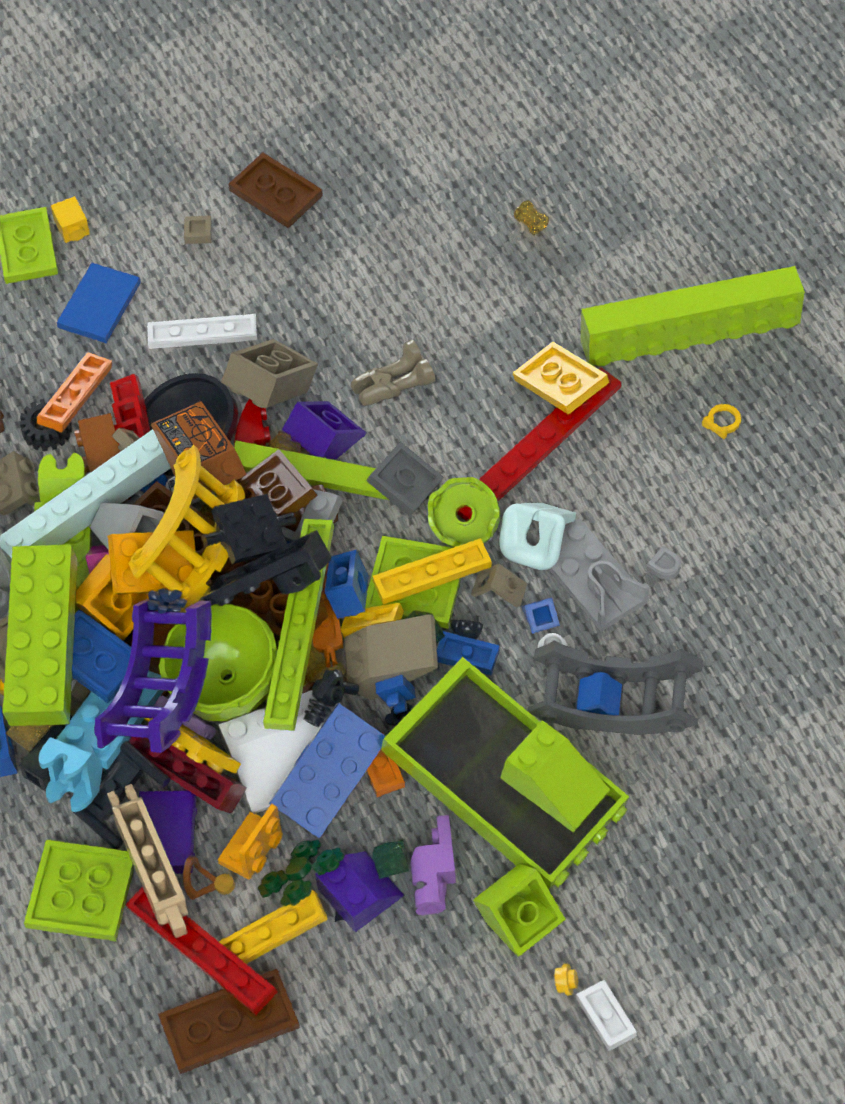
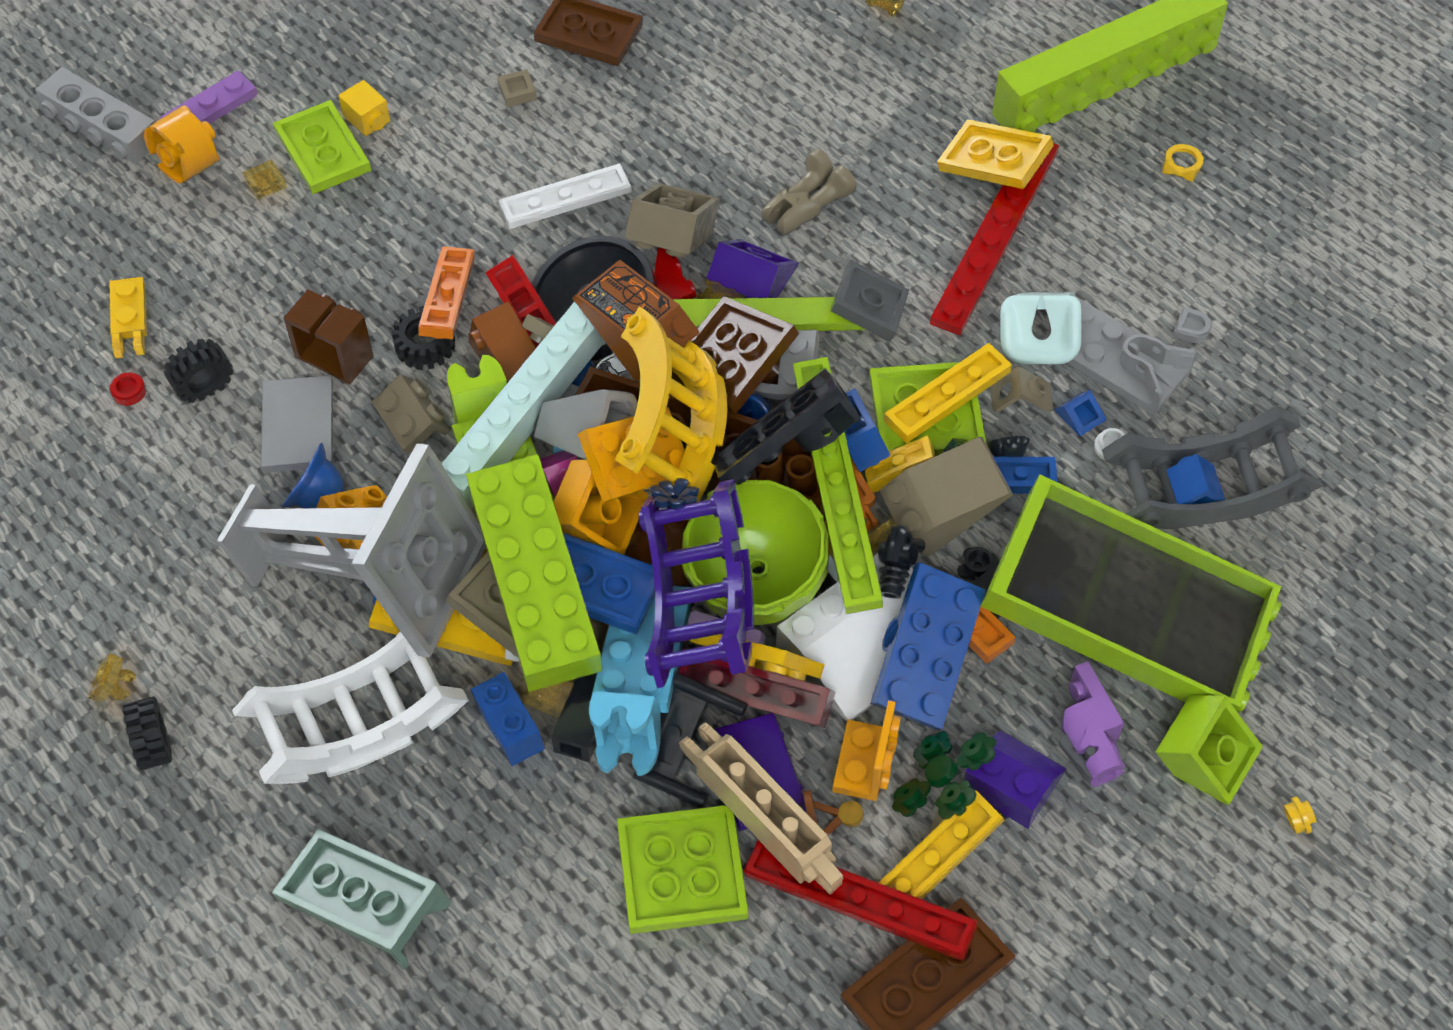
camera: 20 degrees left, 0 degrees up
(98, 302) = (431, 191): blue tile -> none
(248, 528) = (739, 387): black plate -> none
(390, 858) = (1039, 729): clear green bracket -> none
(396, 692) = (966, 537): blue tile -> none
(450, 498) = (960, 297): lime plate -> none
(554, 776) = (1197, 584): lime slope -> none
(606, 1015) = (1363, 844): white plate -> none

